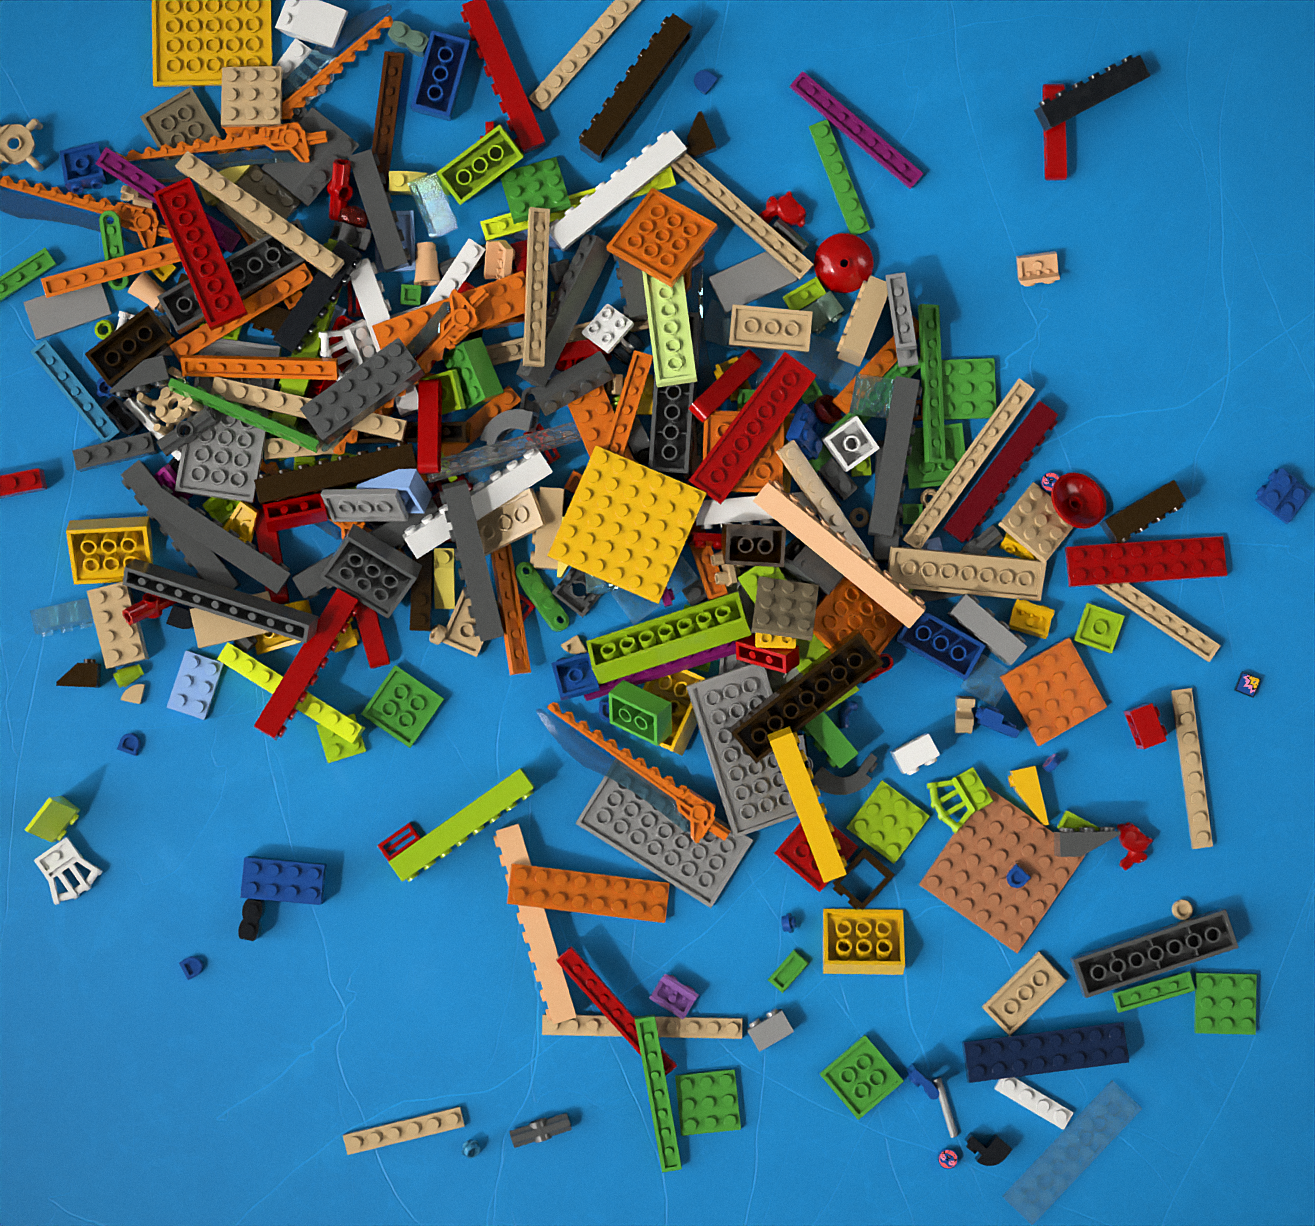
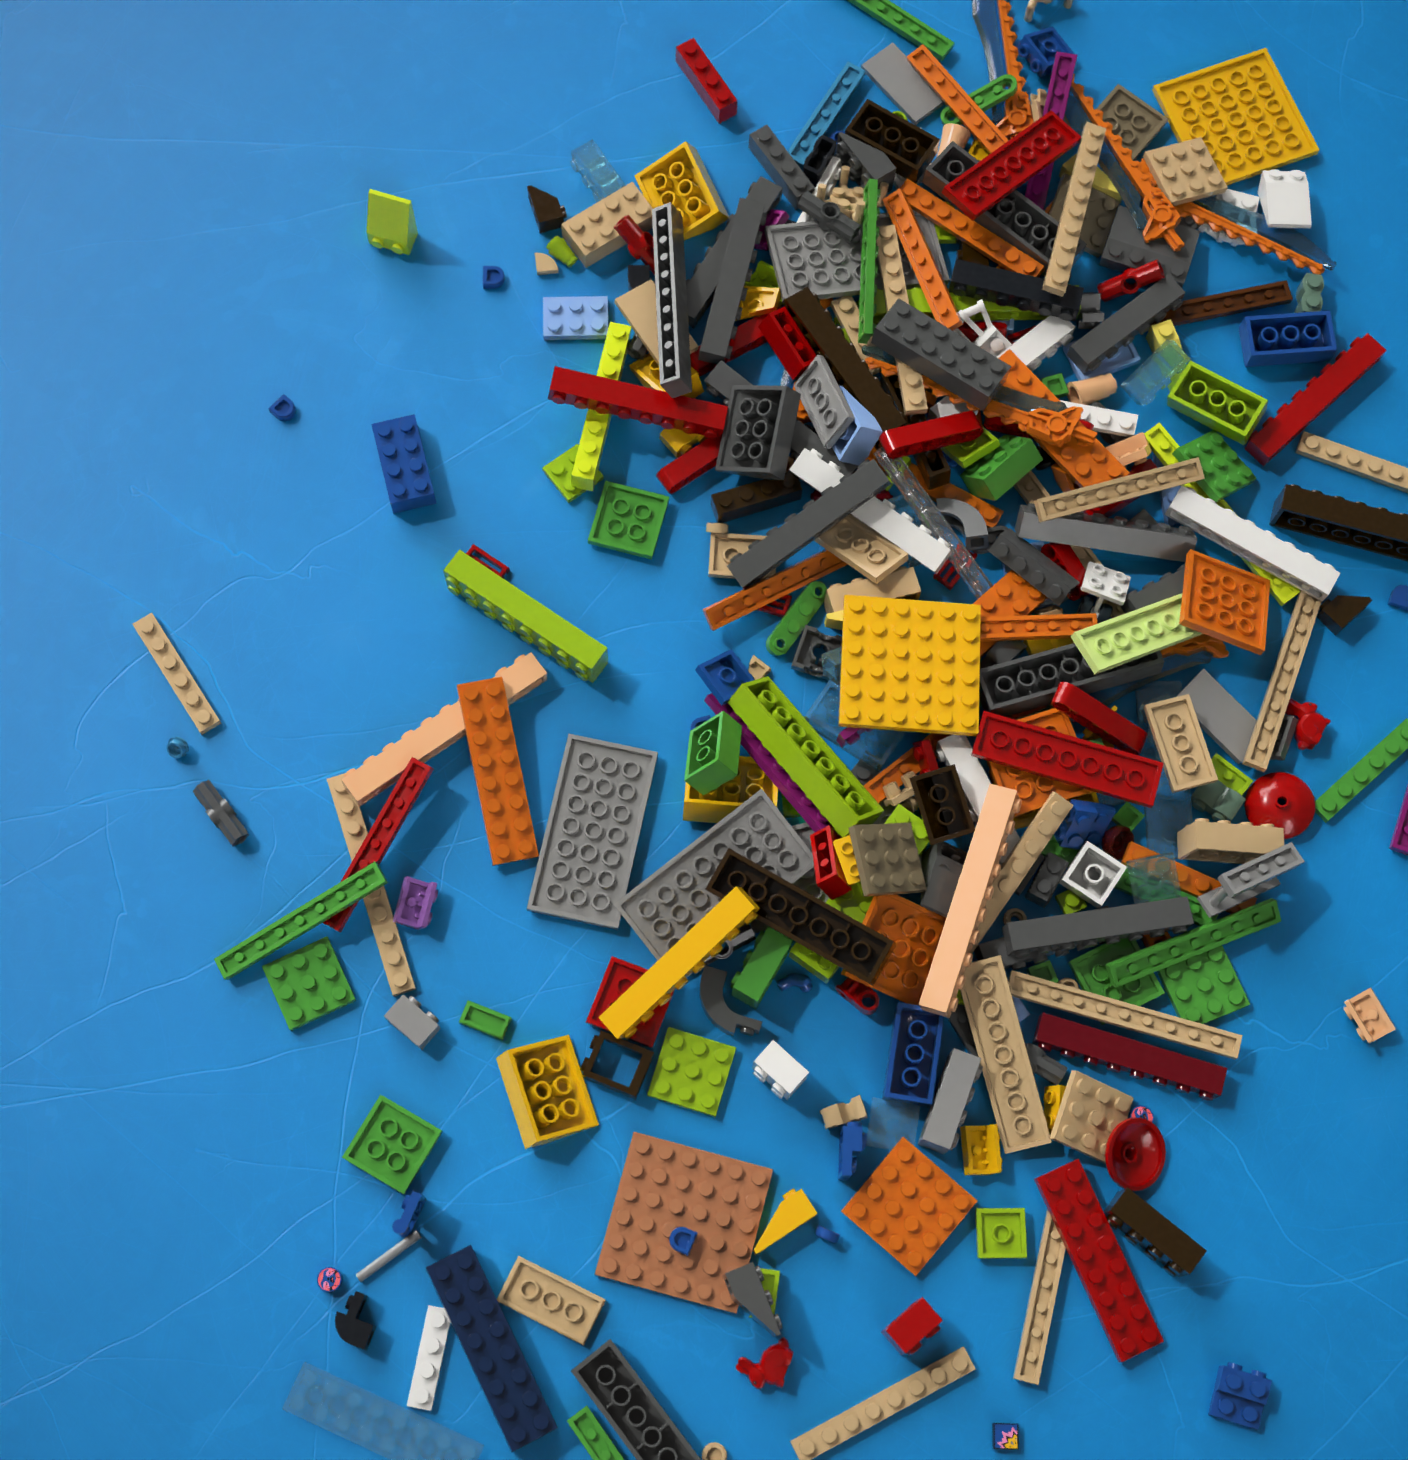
camera: 70 degrees right, 15 degrees down
(56, 861) = (349, 247): white plate -> none
(251, 924) = (348, 447): black brick -> none
(353, 216) = (1110, 300): clear red hair -> none
(444, 578) = (774, 514): light yellow slope -> none
(688, 802) = (633, 843): piece -> none
(789, 923) = (539, 1000): blue plate -> none
(971, 791) = (759, 1153): lime plate -> none

